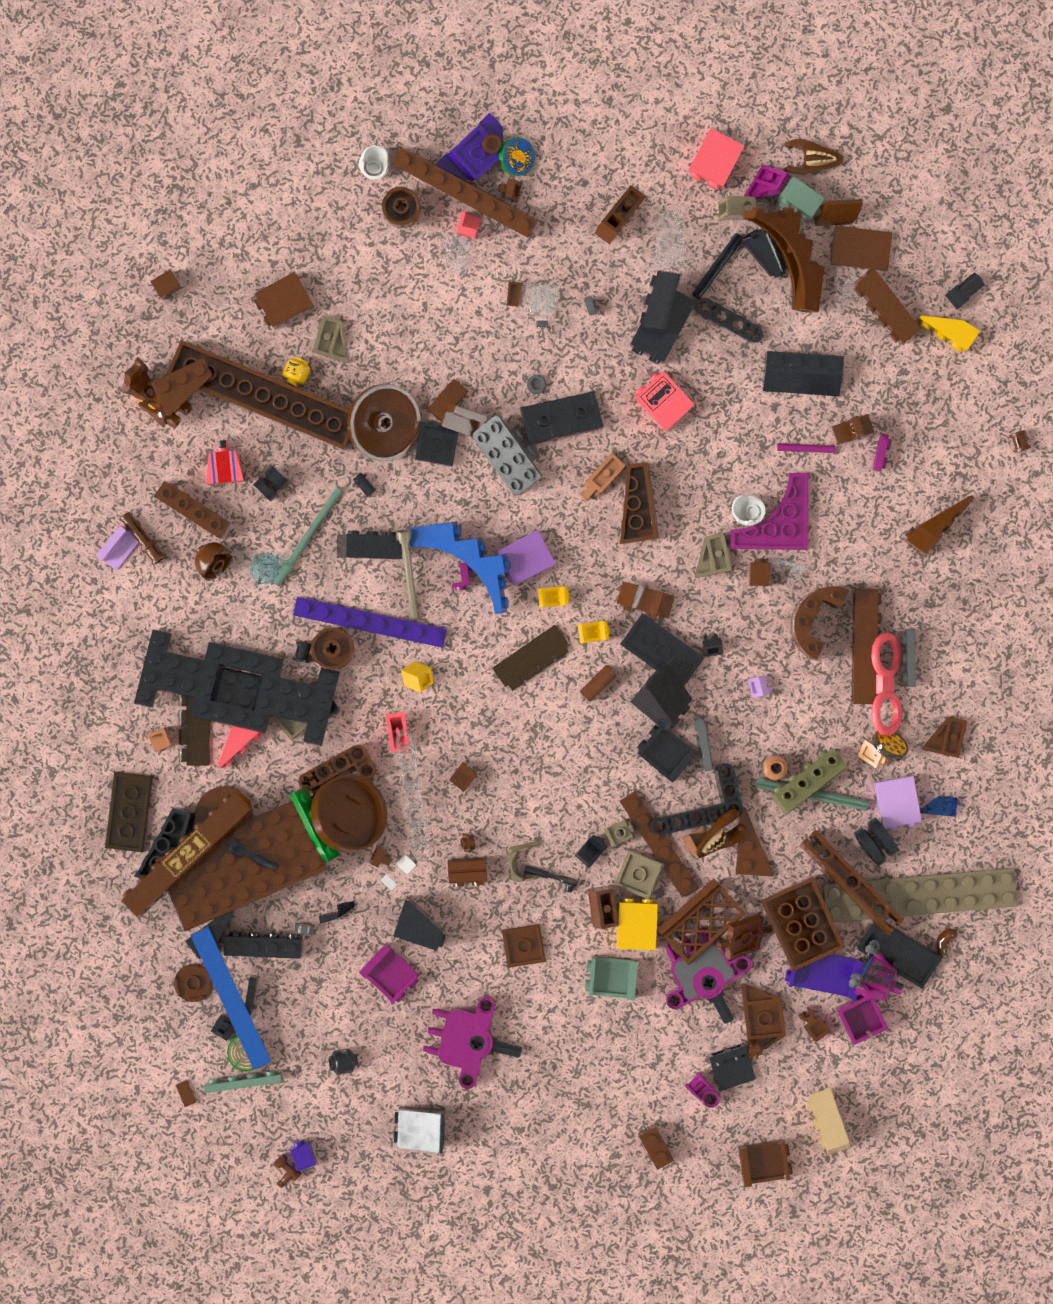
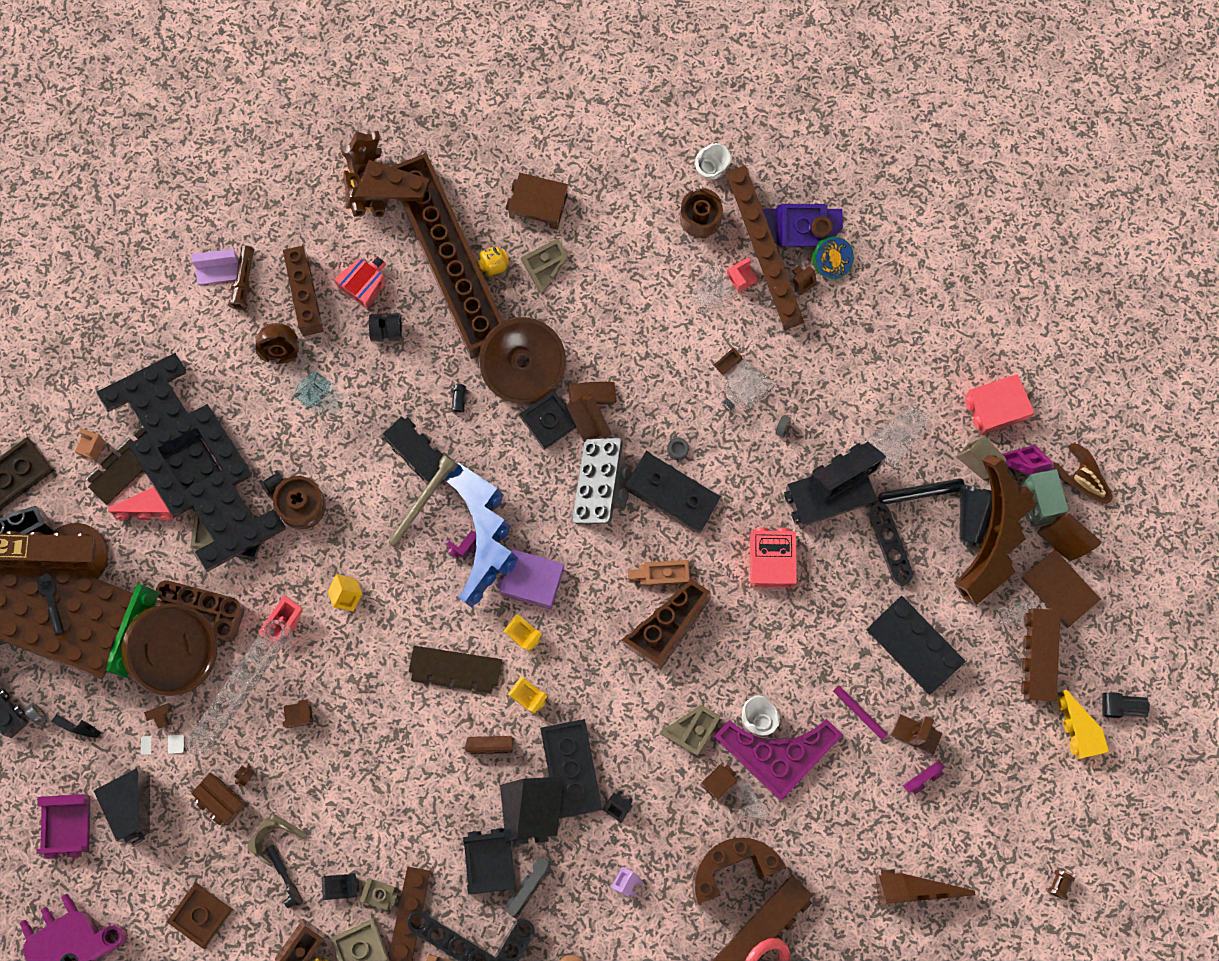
camera: 45 degrees right, 15 degrees down
(166, 284) = (458, 108): reddish brown panel -> none
(287, 568) = (330, 406): sand green bar -> none
(370, 622) = (352, 513): dark purple plate -> none
(619, 214) = (875, 376): reddish brown slope -> none
(645, 600) = (598, 710): reddish brown brick -> none

